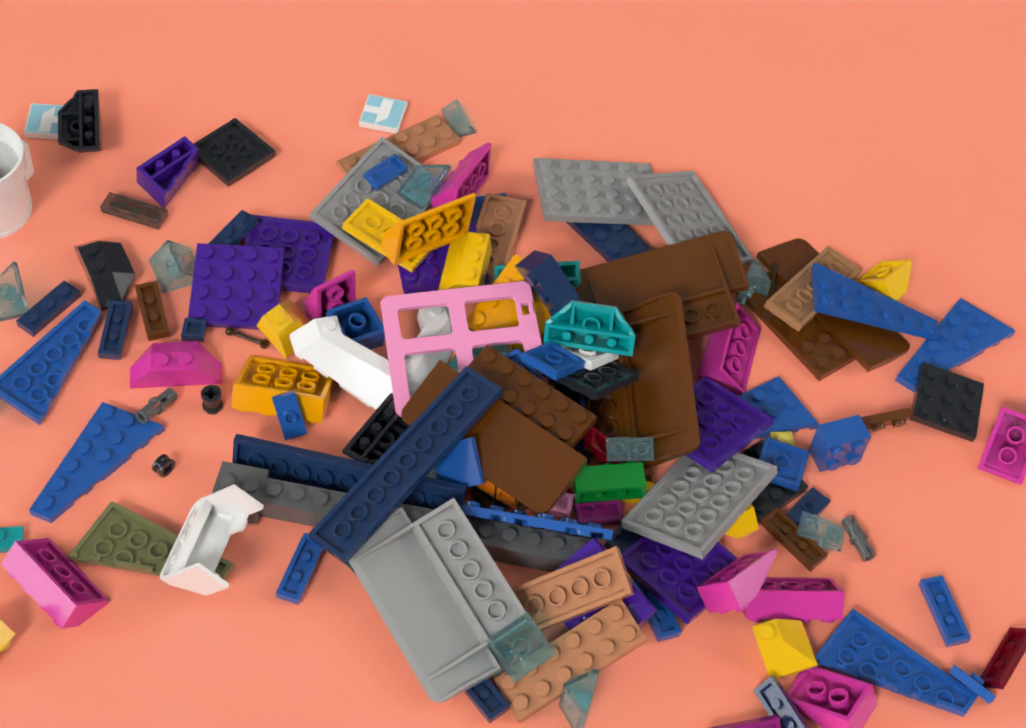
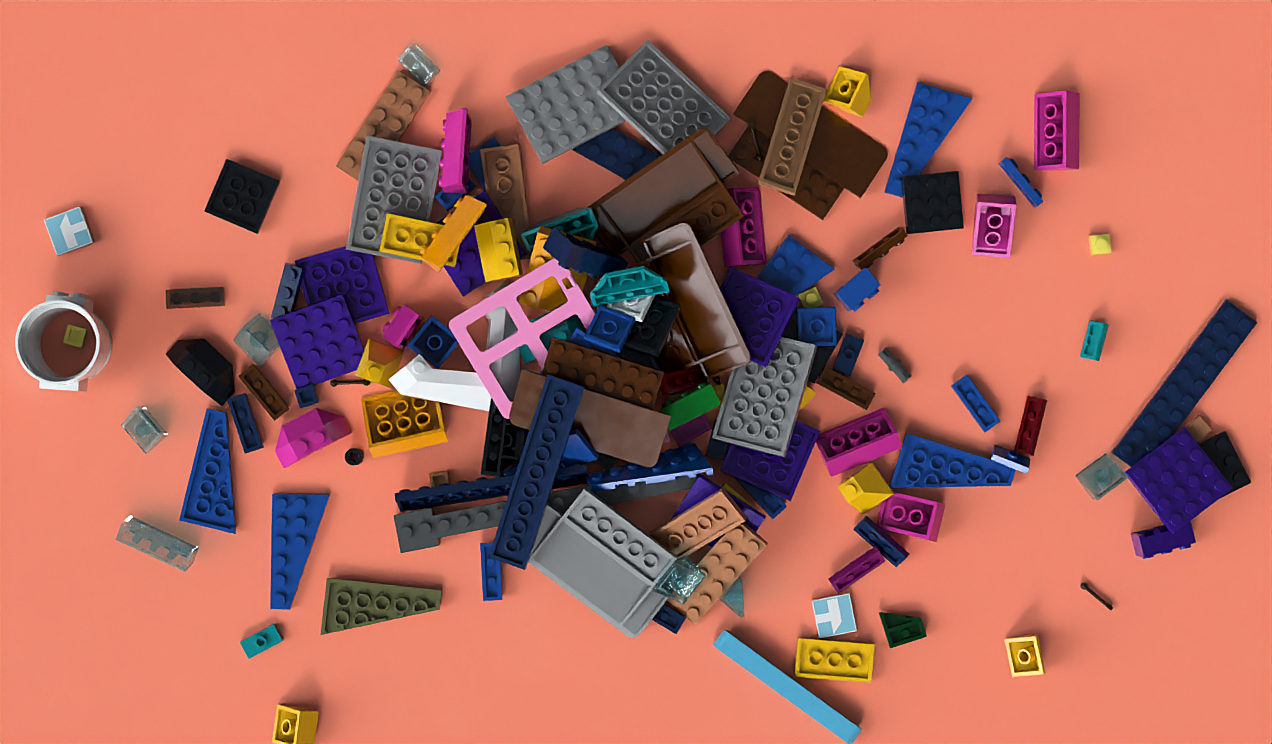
camera: 20 degrees left, 35 degrees up
(48, 308) = (180, 424): dark blue plate -> none
(54, 582) = (322, 658): dark pink slope -> none
(81, 122) = (104, 232): black wedge -> none
(146, 413) = (315, 481): dark grey pin -> none
(163, 465) = (348, 530): black bush -> none
(168, 170) = (203, 247): dark purple wedge -> none
(204, 538) = (412, 592): white windscreen -> none
(289, 415) = (422, 450): blue plate -> none
(383, 114) = (349, 89): tile -> none
(385, 172) = (387, 173): blue tile -> none
(423, 184) = (424, 169): clear light blue slope -> none
(630, 449) = (696, 376): clear light blue slope -> none
(737, 582) = (816, 459): dark pink slope -> none
(757, 281) = (740, 148): clear light blue slope -> none
(824, 531) = (864, 374): clear light blue slope -> none
(855, 302) = (833, 138): blue wing -> none

